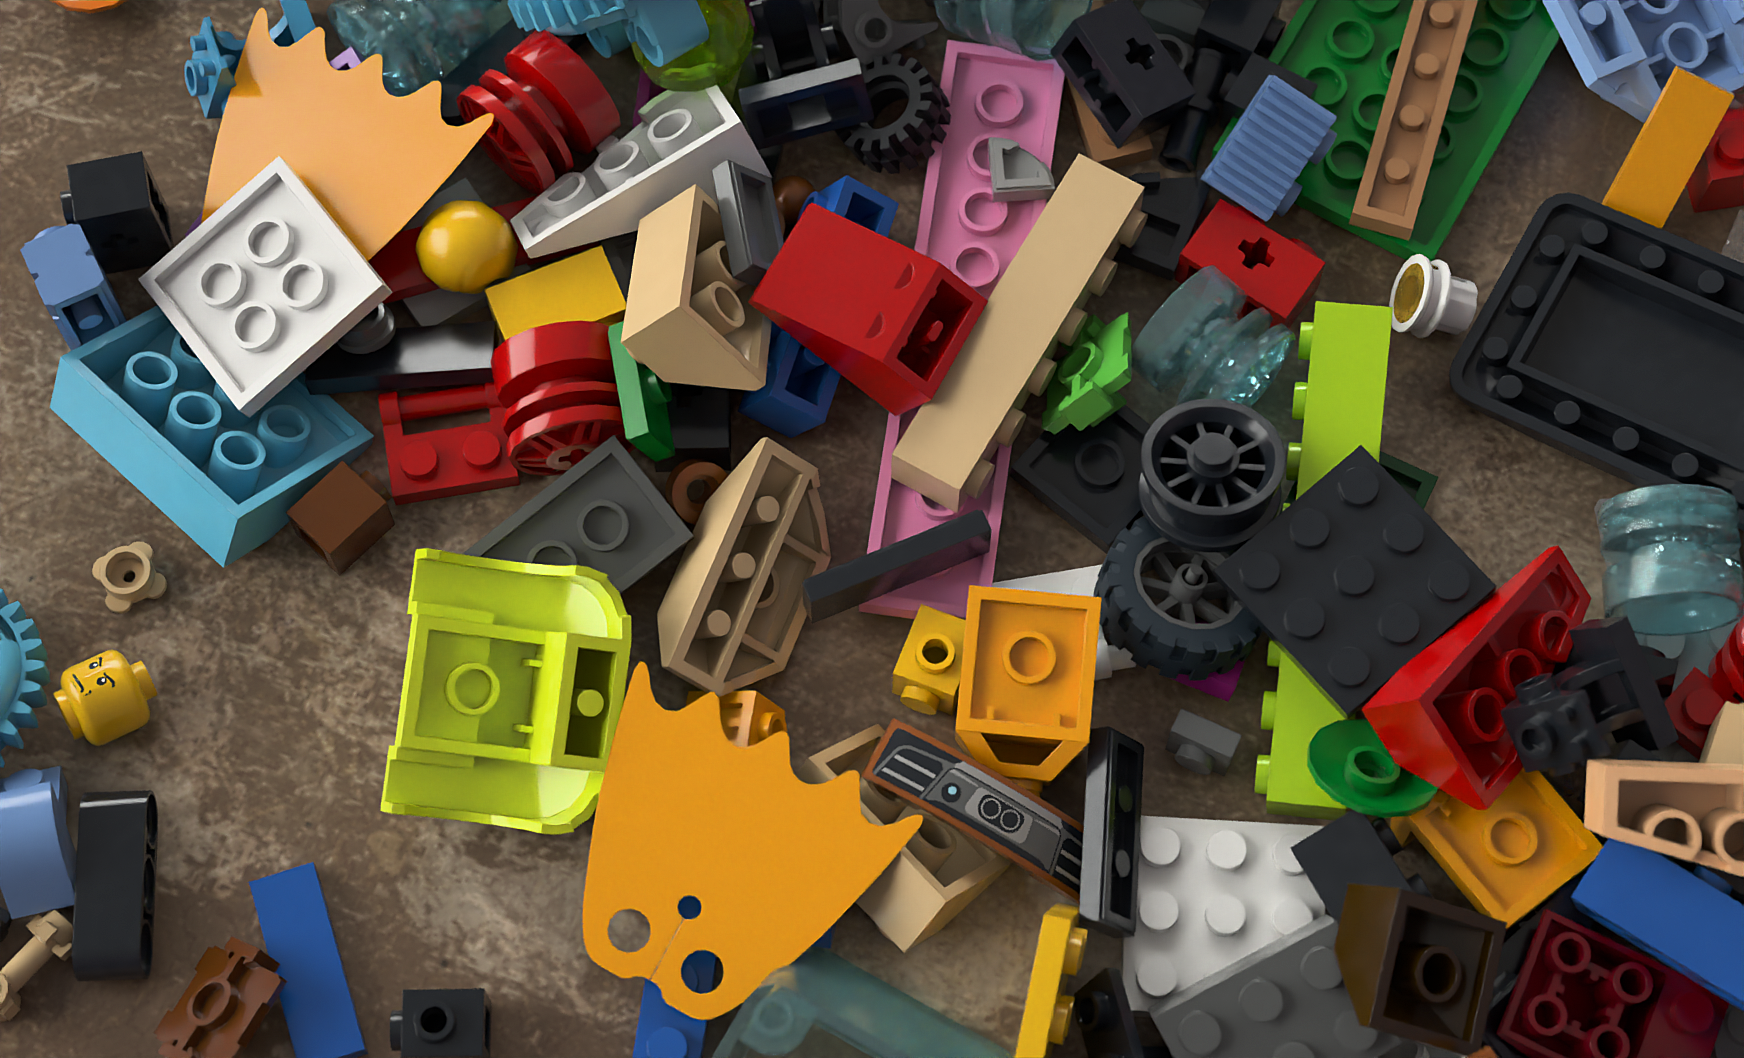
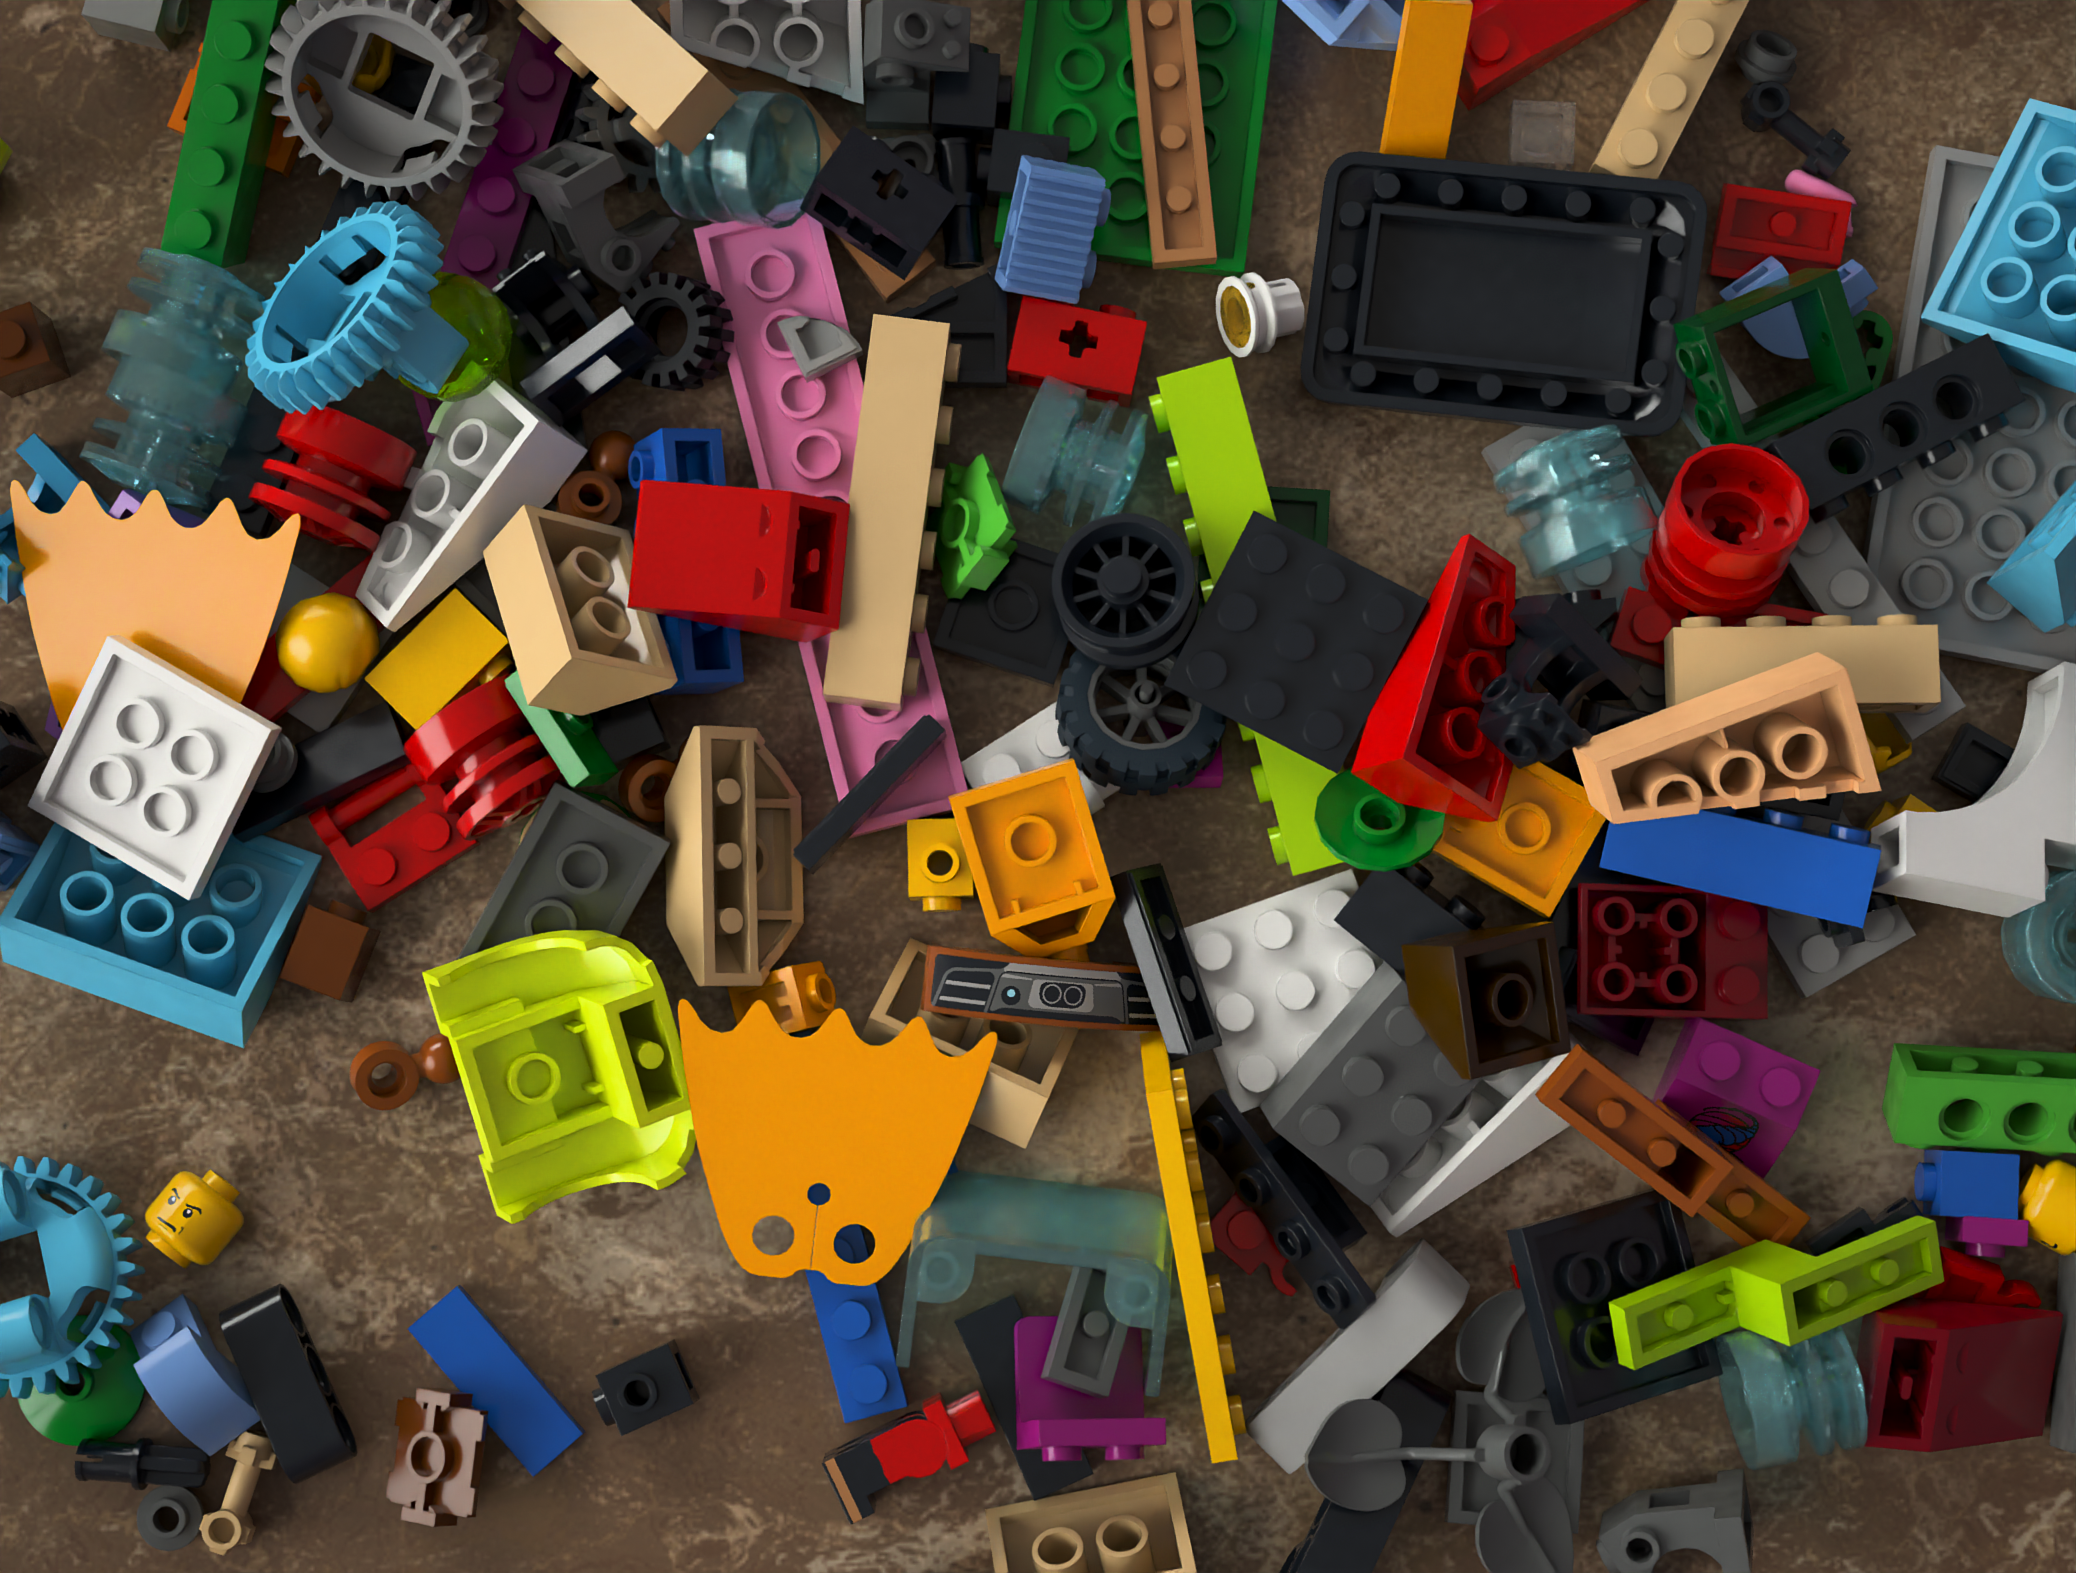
camera: 25 degrees left, 15 degrees up
(123, 560) = (139, 1089): tan plate -> none
(386, 652) = (432, 1061): none -> dark orange plate
(748, 220) = (589, 515): dark grey tile -> none
(1202, 744) = (1213, 840): dark grey plate -> none

